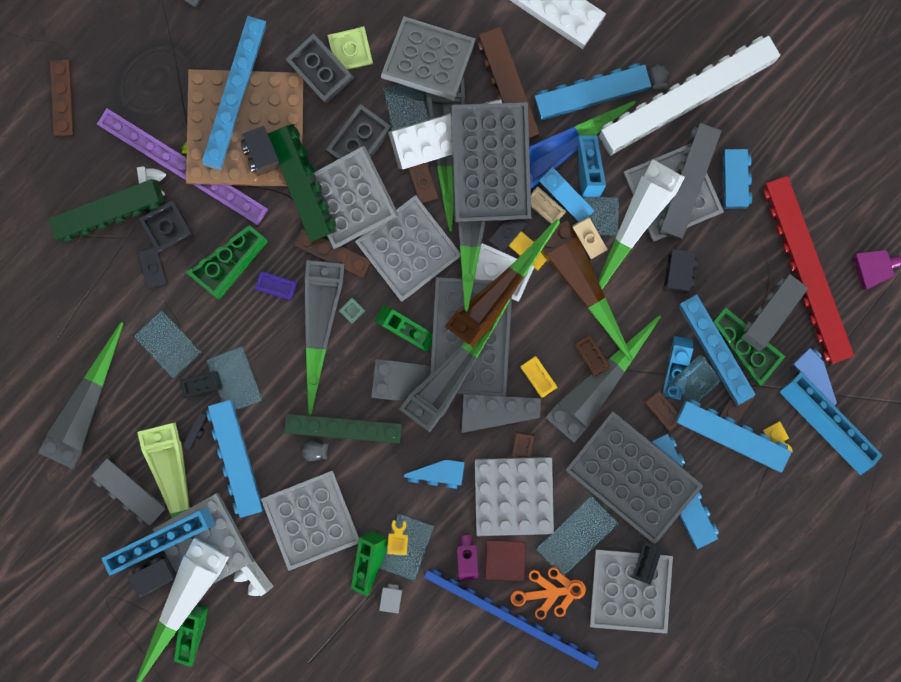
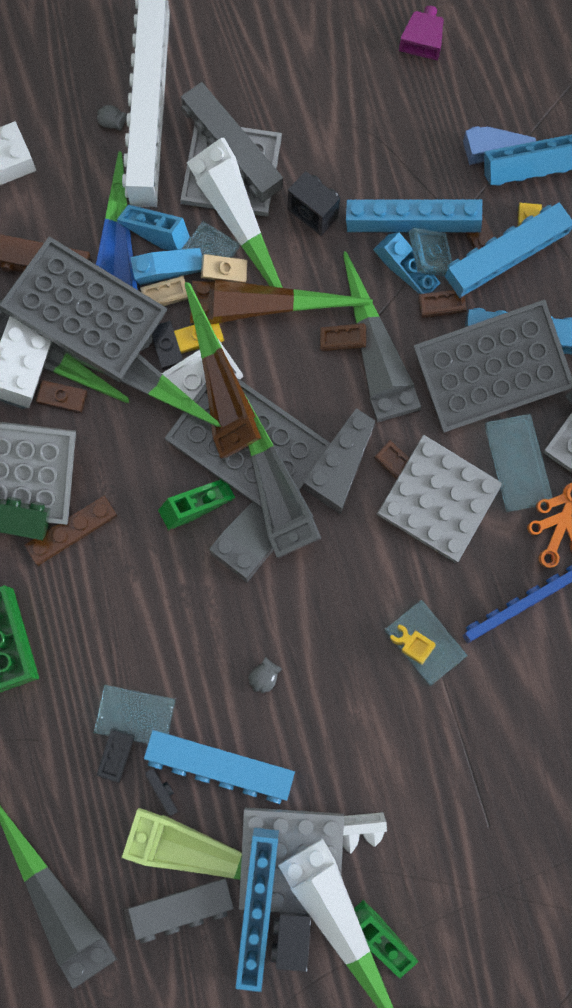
camera: 60 degrees left, 10 degrees down
(167, 344) = (49, 765): clear light blue tile -> none
(276, 285) = (64, 609): dark purple plate -> none
(310, 520) = (336, 726): light grey plate -> none
(321, 295) = (106, 567): dark grey plate -> none
(343, 428) = (260, 630): dark green brick -> none
(351, 310) = (143, 547): sand green tile -> none
(368, 561) = (418, 691): green slope -> none
(391, 598) = (472, 691): light grey brick -> none
(409, 249) = (118, 450): light grey plate -> none
(443, 472) = (370, 554): dark azure slope -> none
(467, 567) = (488, 586): magenta torso -> none
(505, 560) = (501, 549): clear red tile -> none
(538, 377) = (331, 401): yellow plate -> none
(592, 92) = (83, 182): dark azure brick -> none
(736, 179) = (256, 104): dark azure brick -> none
(756, 364) = (435, 181): green wedge -> none
(774, 312) = (410, 136): dark grey wedge -> none
(808, 270) = (387, 92): red brick -> none

